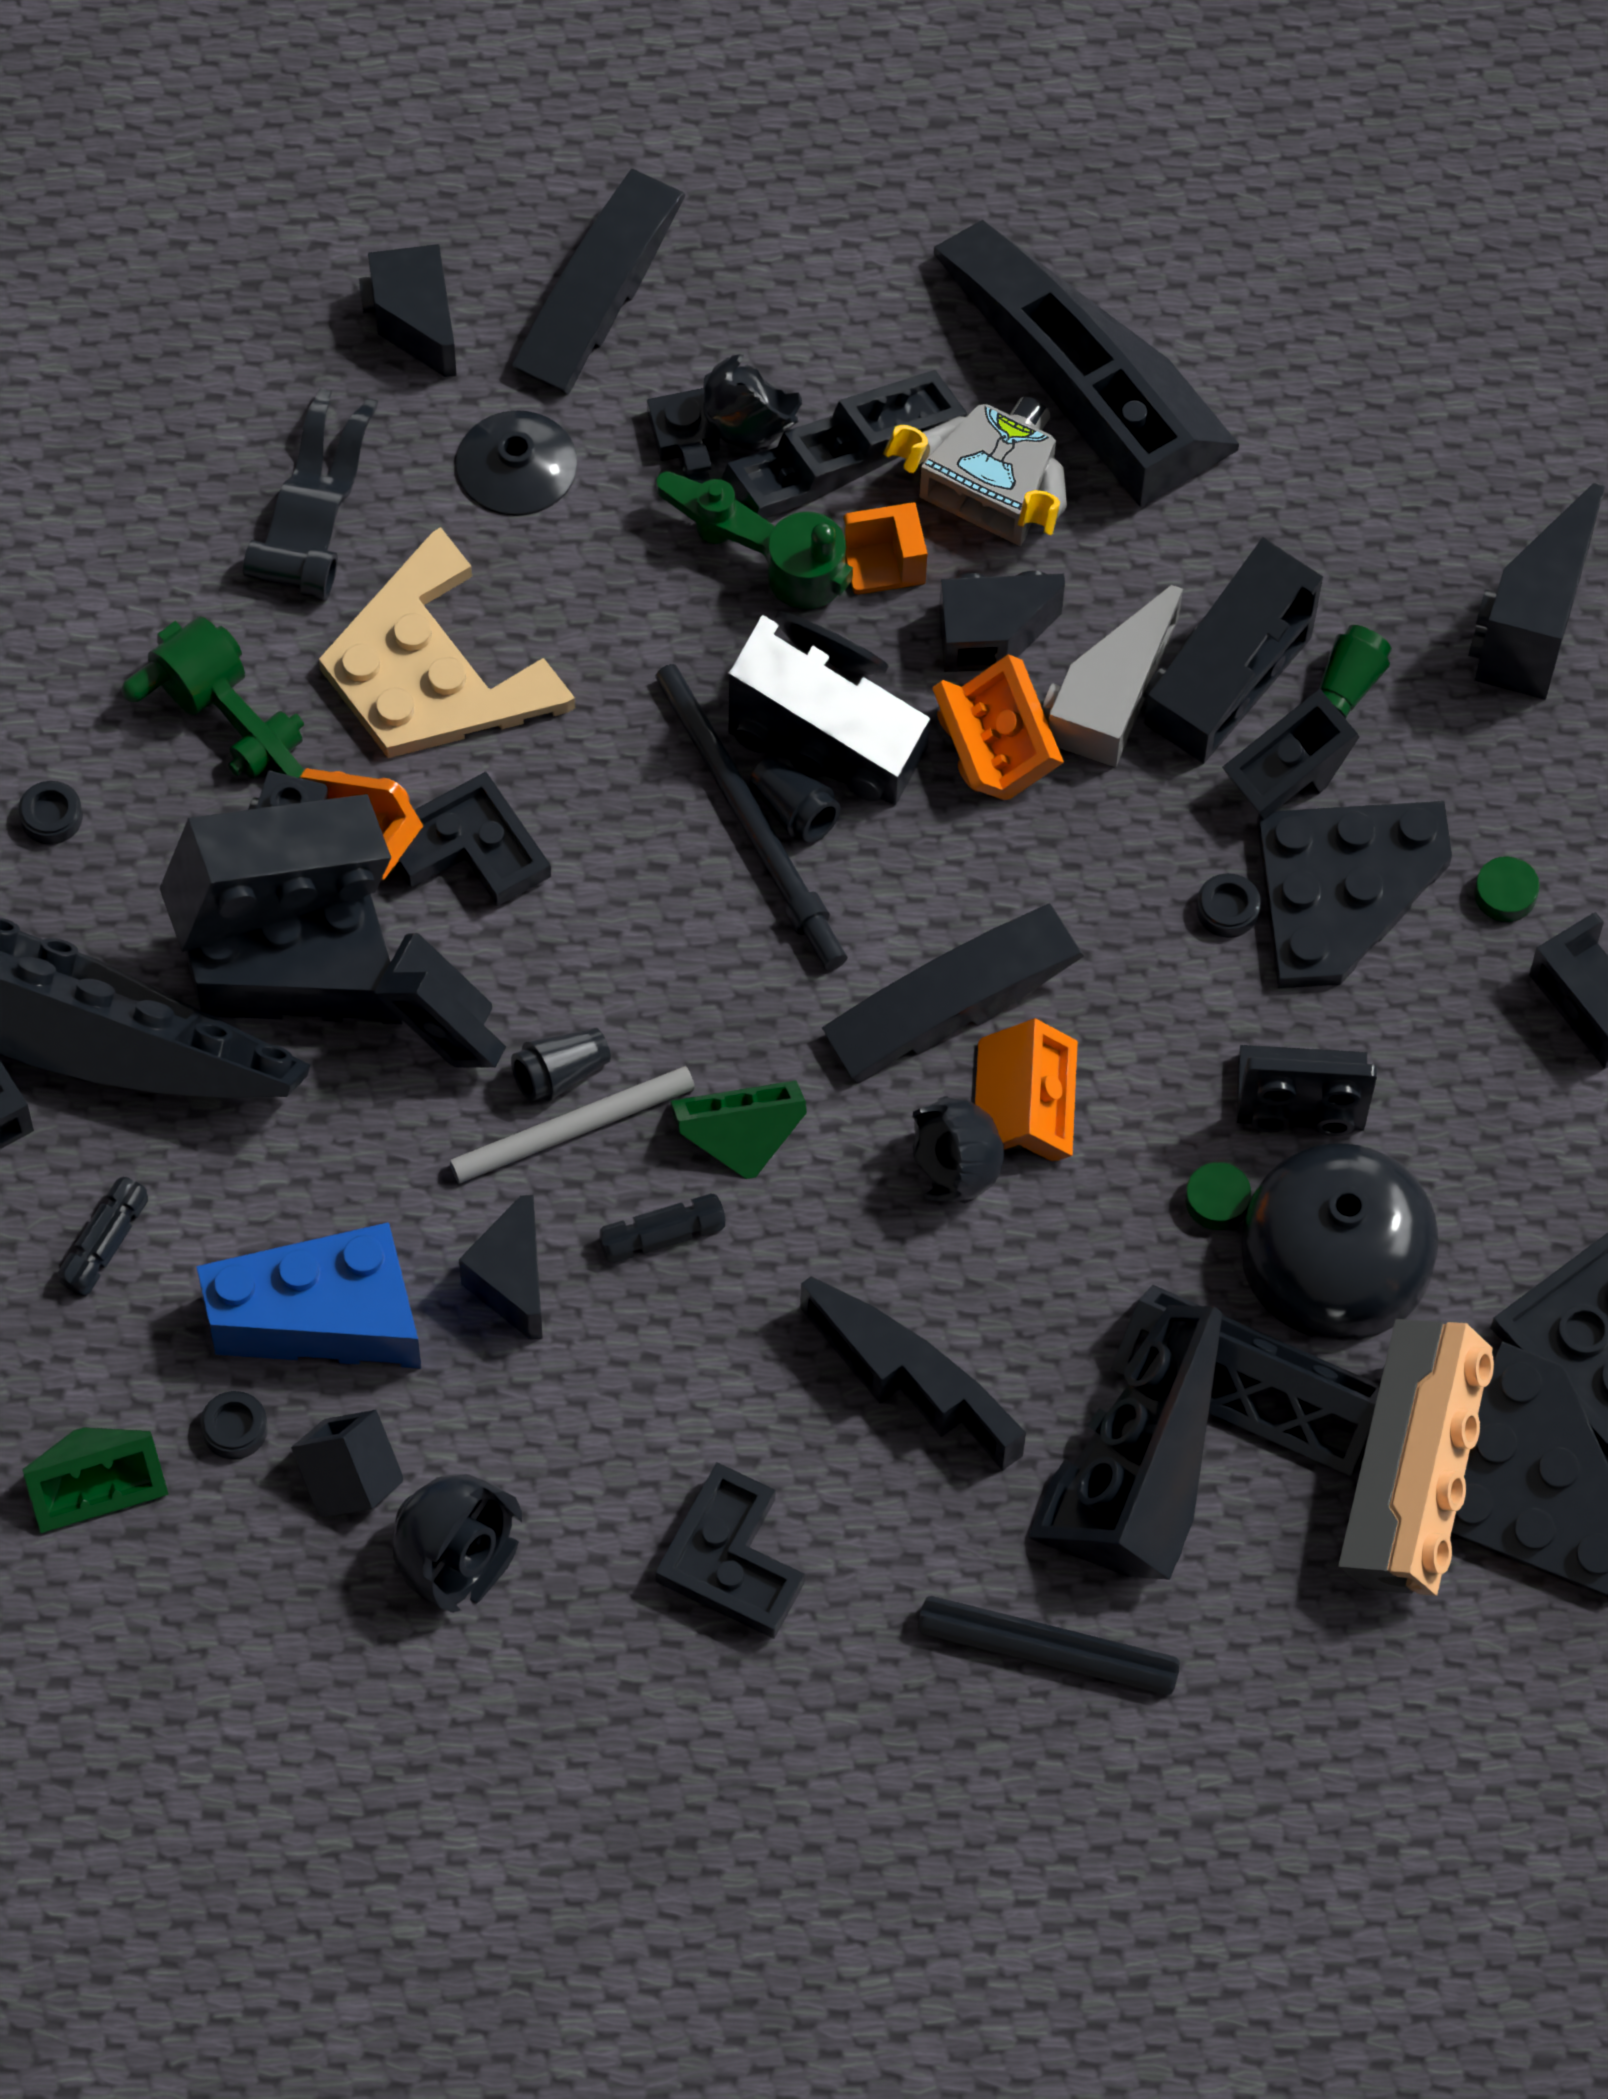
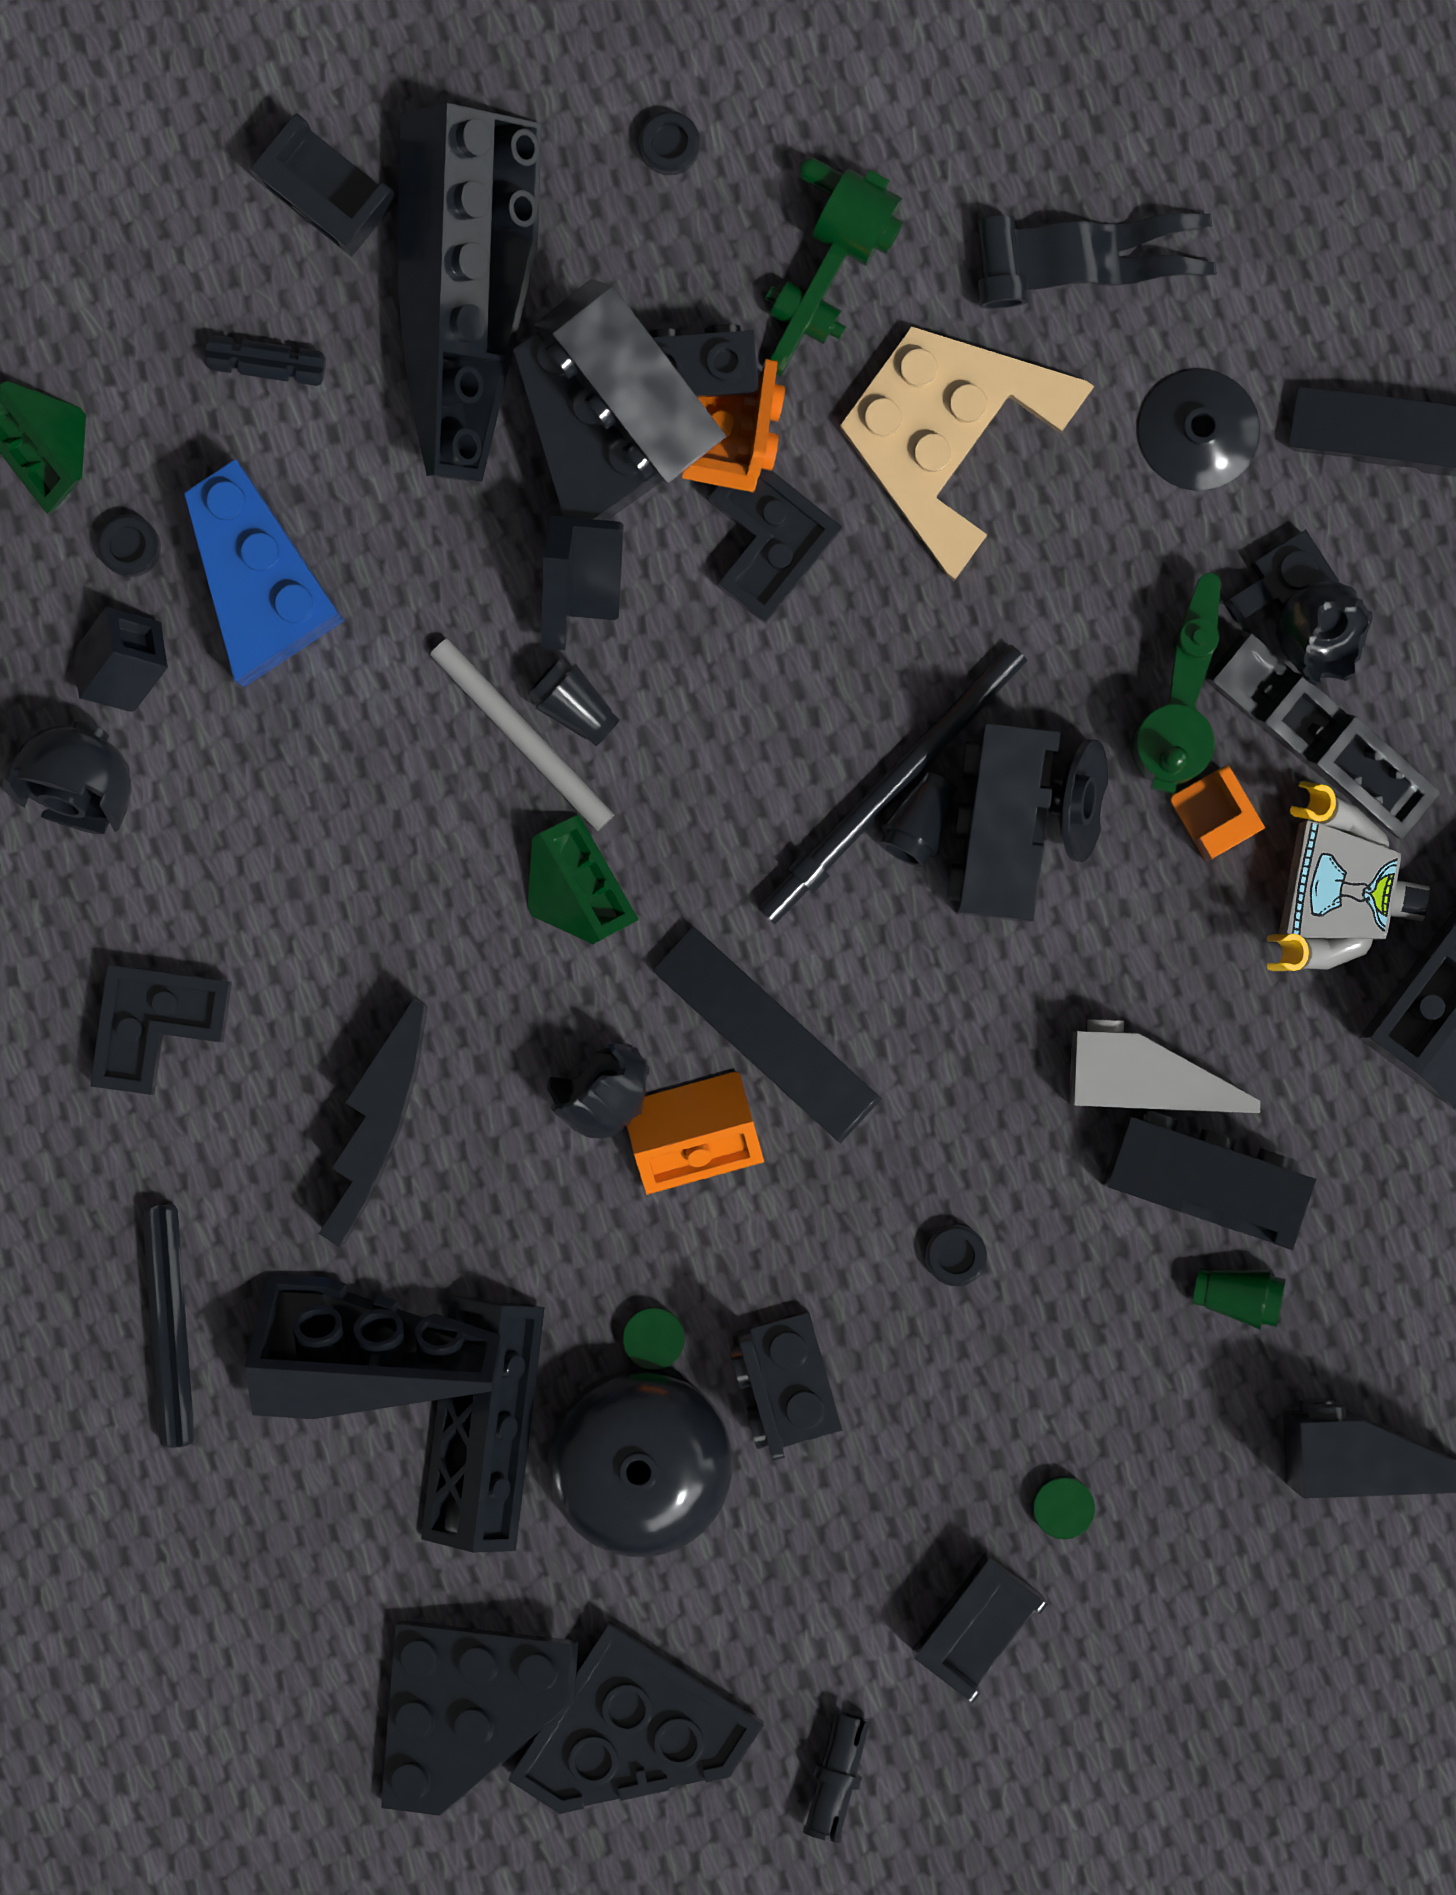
camera: 75 degrees right, 25 degrees up
(411, 304) = (1330, 266): black slope -> none
(504, 1268) = (351, 732): black slope -> none
(662, 1228) = (446, 852): black axle -> none
(995, 616) = (1174, 941): black slope -> none
(998, 729) = (1055, 984): orange bracket -> none
(1291, 754) = (1116, 1270): black slope -> none
(1345, 881) = (1018, 1355): black plate -> none
(1417, 1457) = (437, 1600): piece -> none

